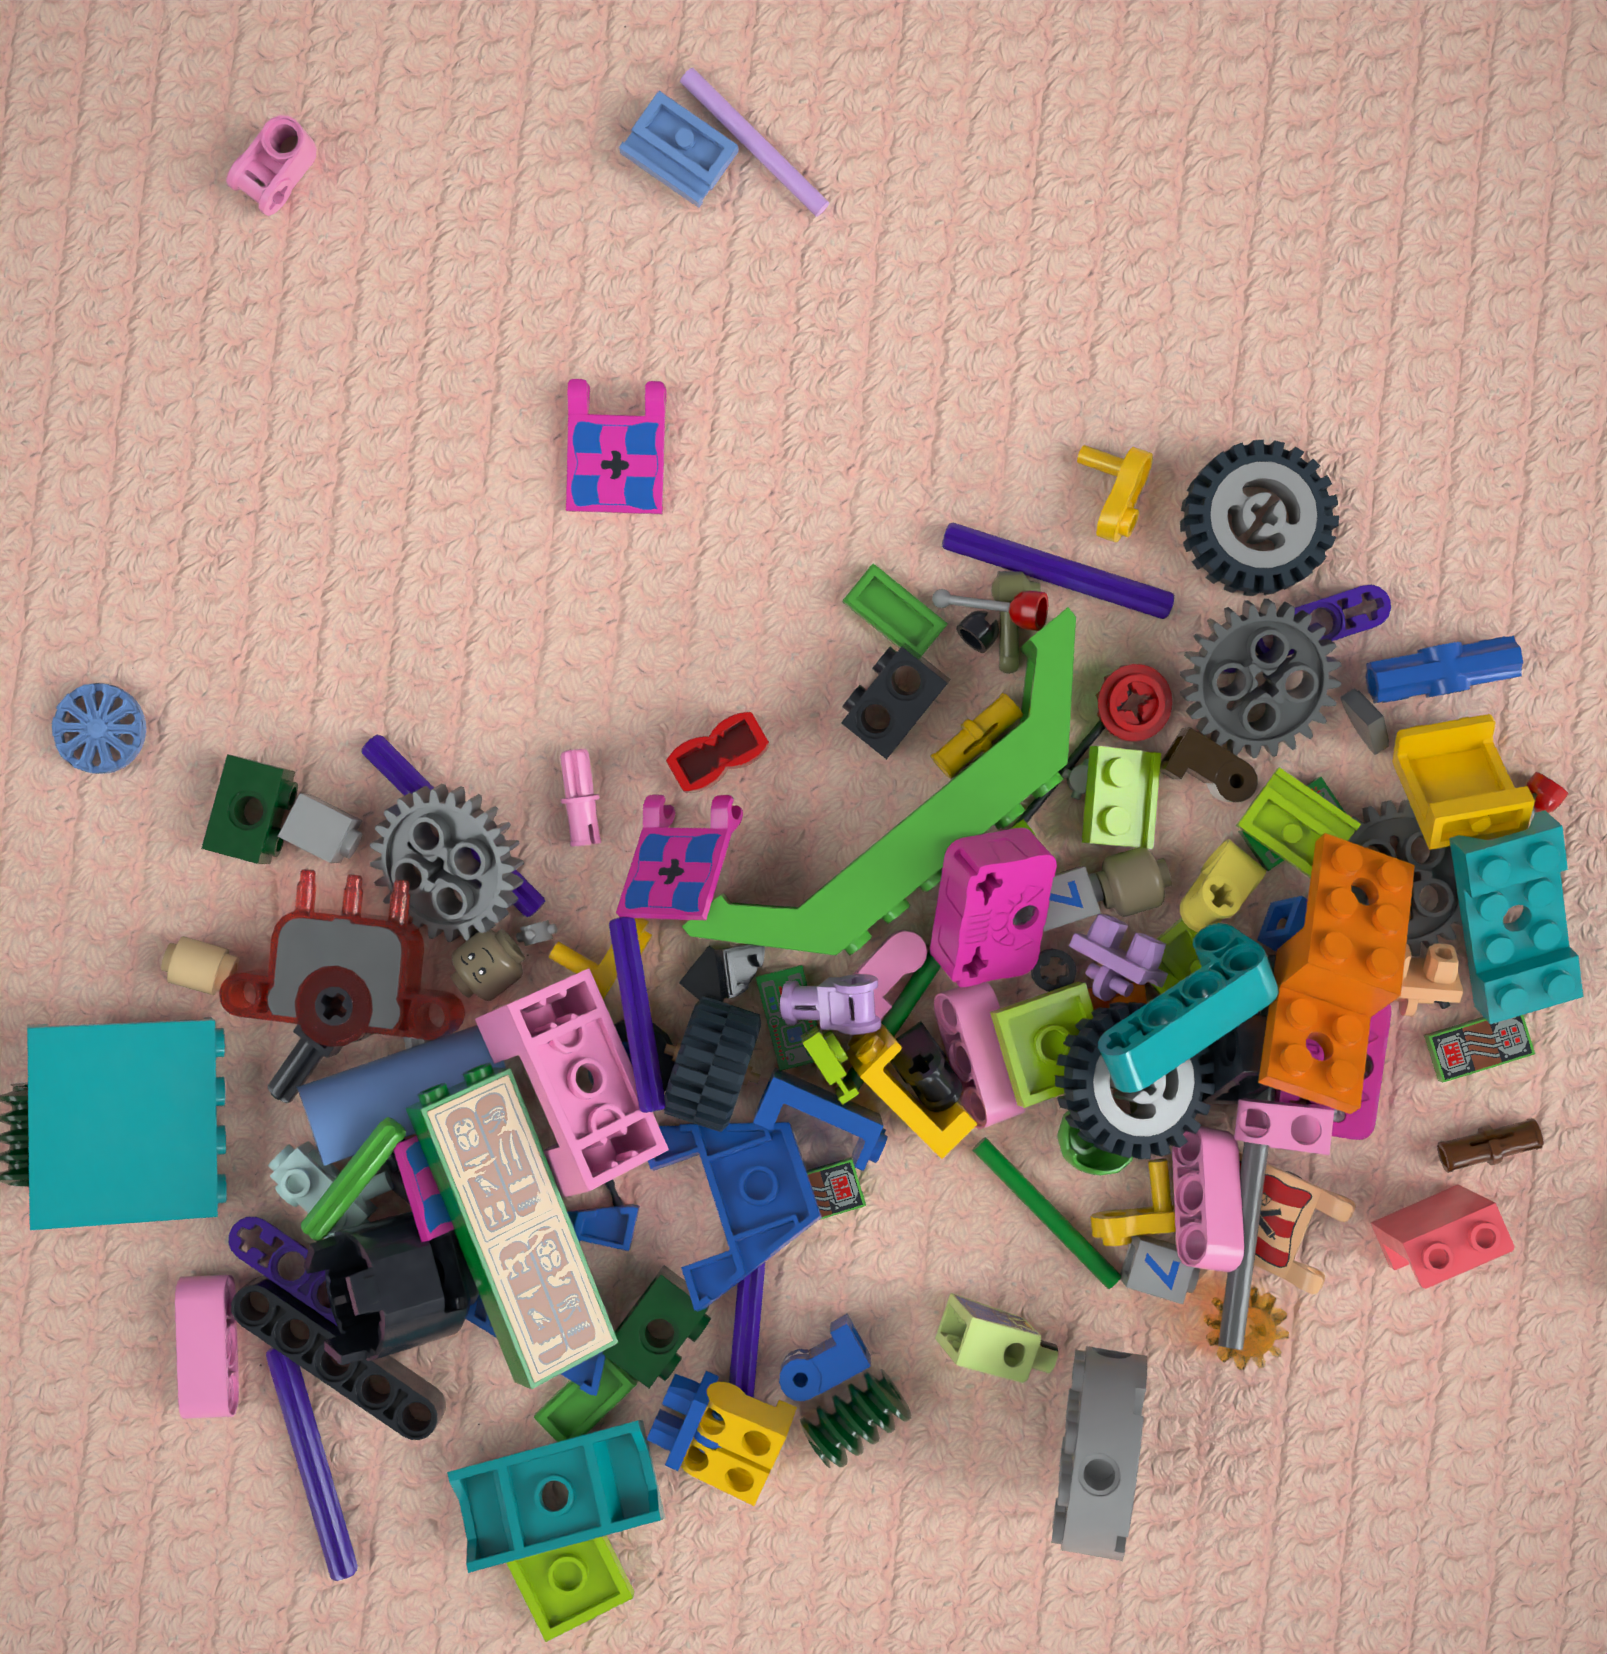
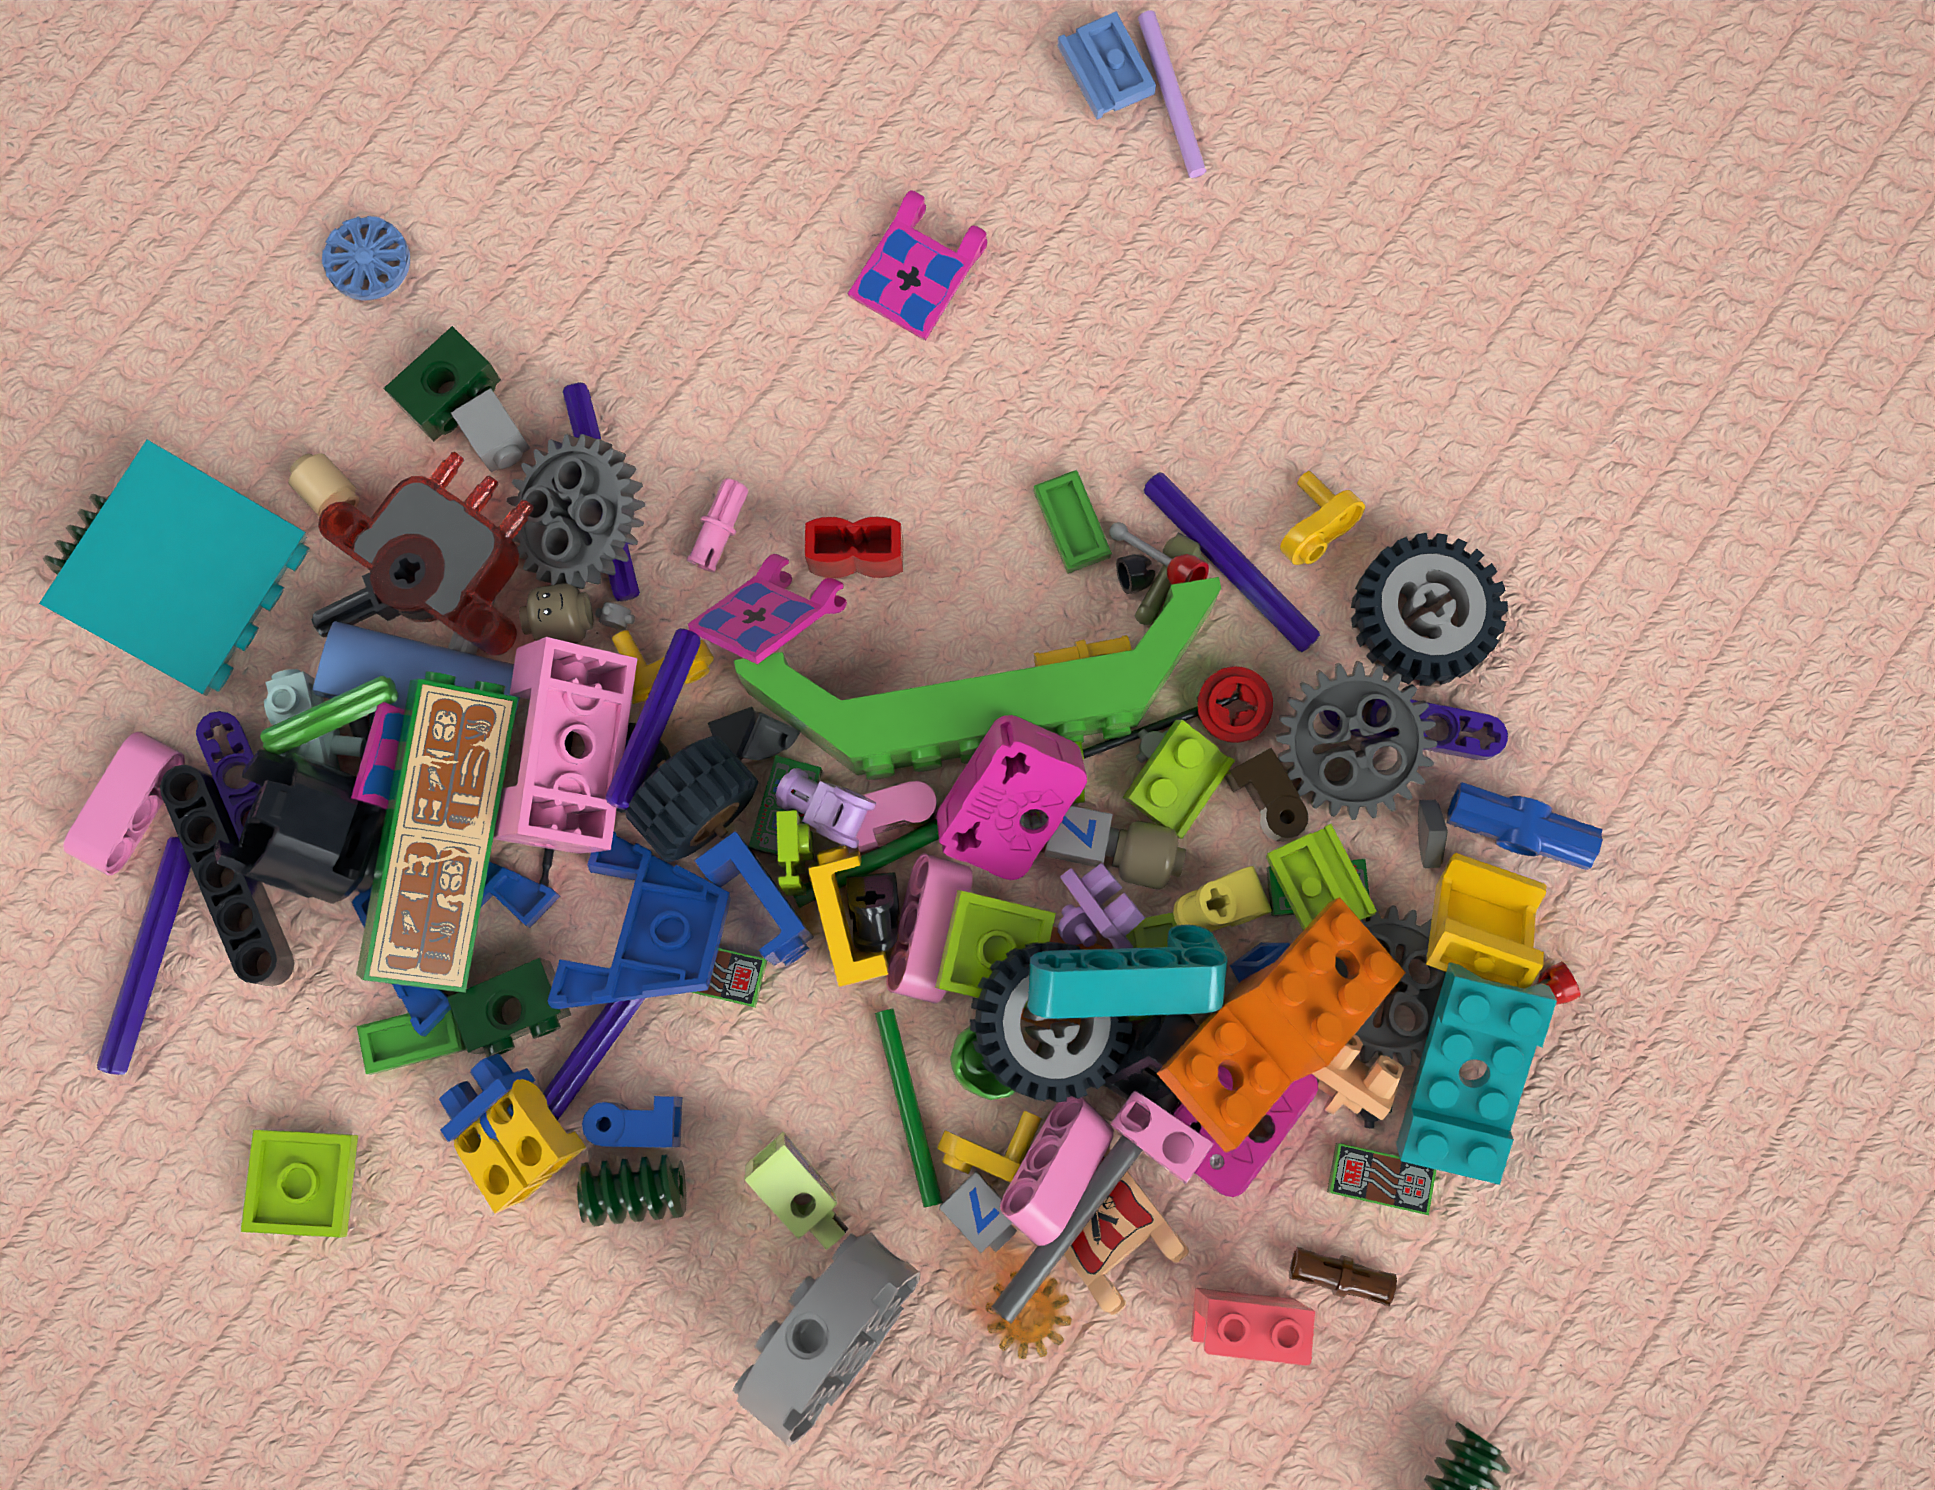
camera: 30 degrees right, 10 degrees down
(607, 1485) = (379, 1122): teal piece -> none
(903, 706) = (1032, 598): black brick -> none
(1062, 980) = (1031, 881): black bush -> none

